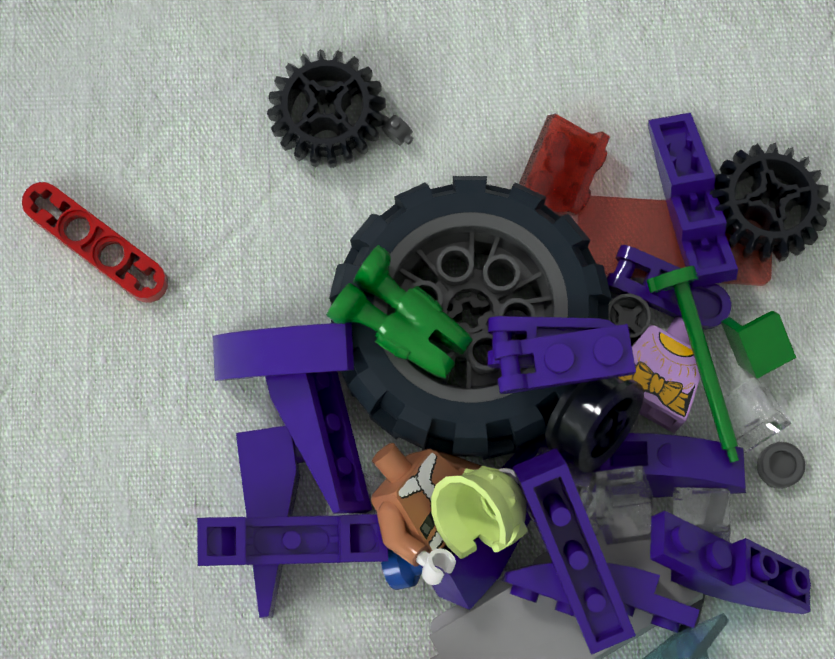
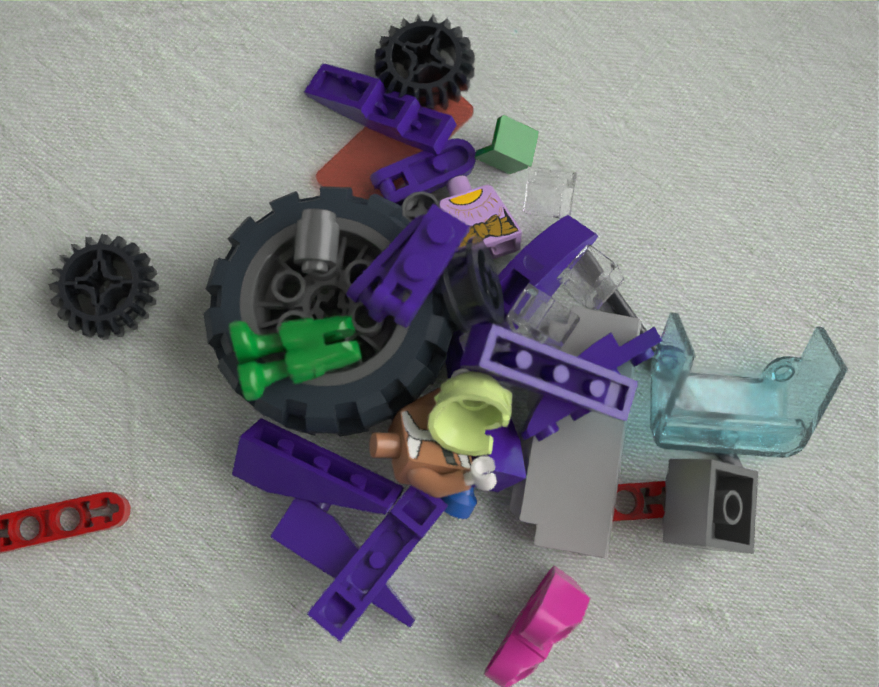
camera: 55 degrees left, 0 degrees up
(283, 351) = (243, 454): dark purple slope -> none
(397, 130) = (163, 254): dark grey piece -> none
(511, 254) = (316, 241): none -> dark grey brick
(564, 164) = (284, 164): clear red bracket -> none
(680, 280) = (428, 158): green piece -> none
(727, 570) = (639, 290): dark purple slope -> none
(781, 465) = (596, 202): dark grey tile -> none

